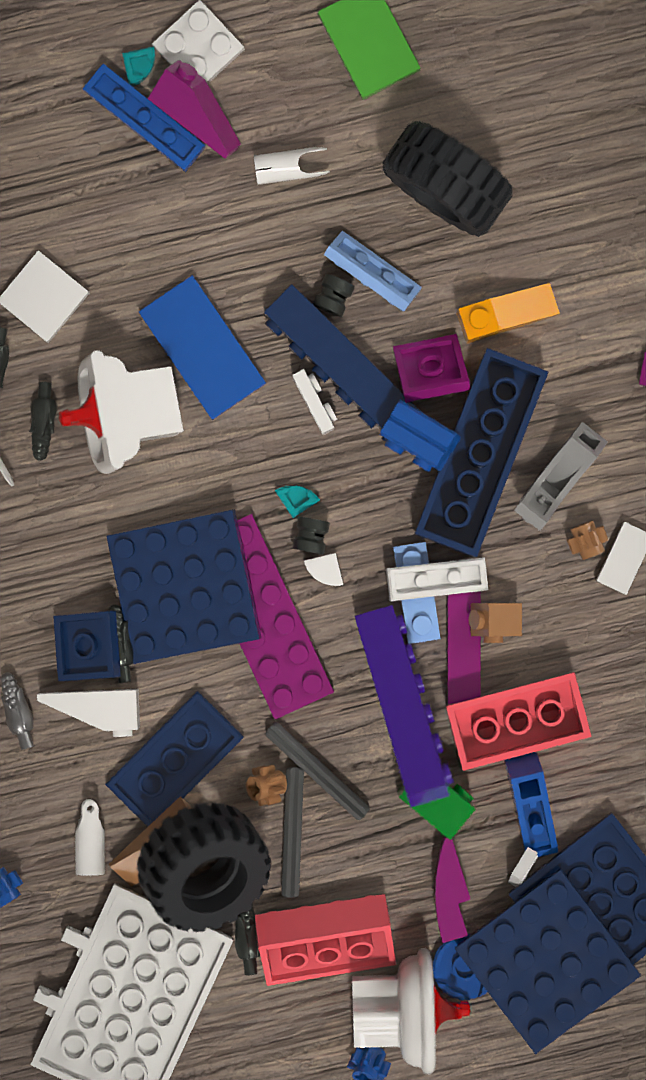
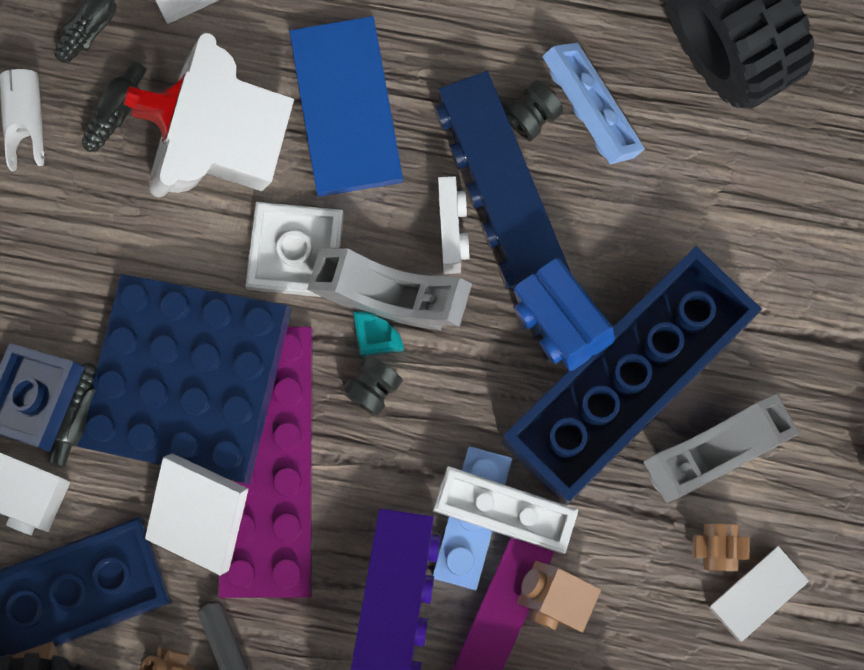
camera: 25 degrees right, 10 degrees down
(214, 464) = (288, 244): none -> white tile
(237, 673) = (196, 513): none -> white tile
(294, 467) = (388, 292): none -> light grey arch
(325, 569) = (371, 437): white tile -> none
(431, 368) = (614, 245): magenta plate -> none
(507, 312) = (735, 221): light orange slope -> none

